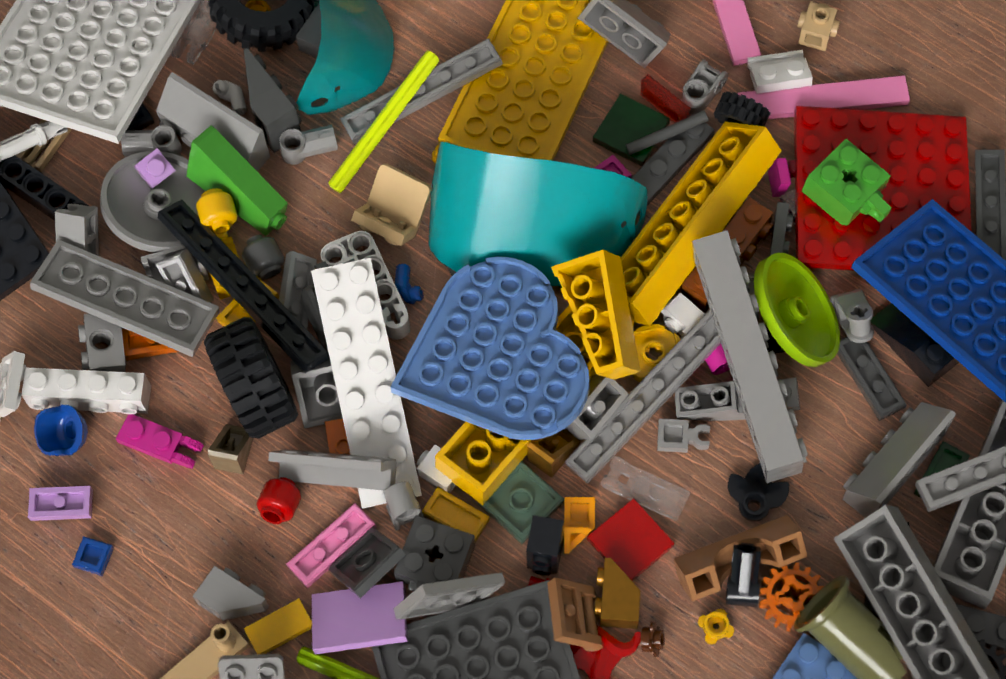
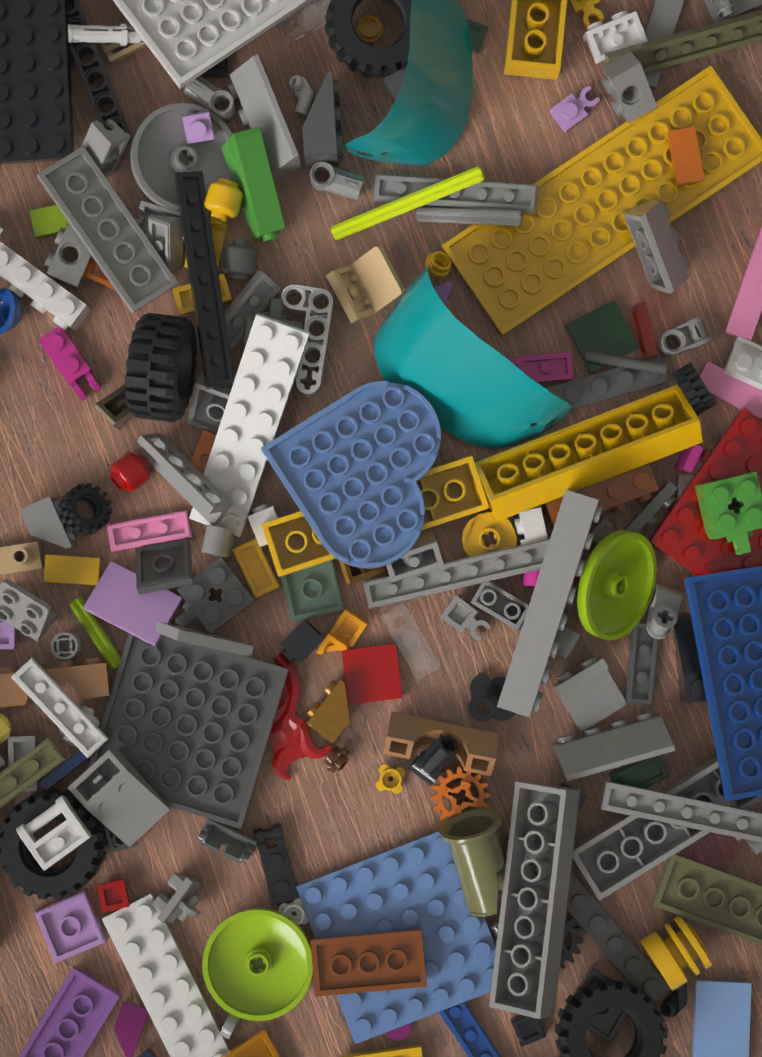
camera: 30 degrees right, 20 degrees up
(63, 330) = (47, 221): none -> lime tile
(254, 570) = (74, 519): none -> black tyre
(407, 292) = (333, 356): blue arm -> none
(446, 99) = (469, 215): none -> light grey axle
(574, 614) = (288, 707): medium nougat plate -> none
(601, 310) = (461, 494): yellow wedge -> none
(841, 428) = (589, 693): none -> light grey bracket

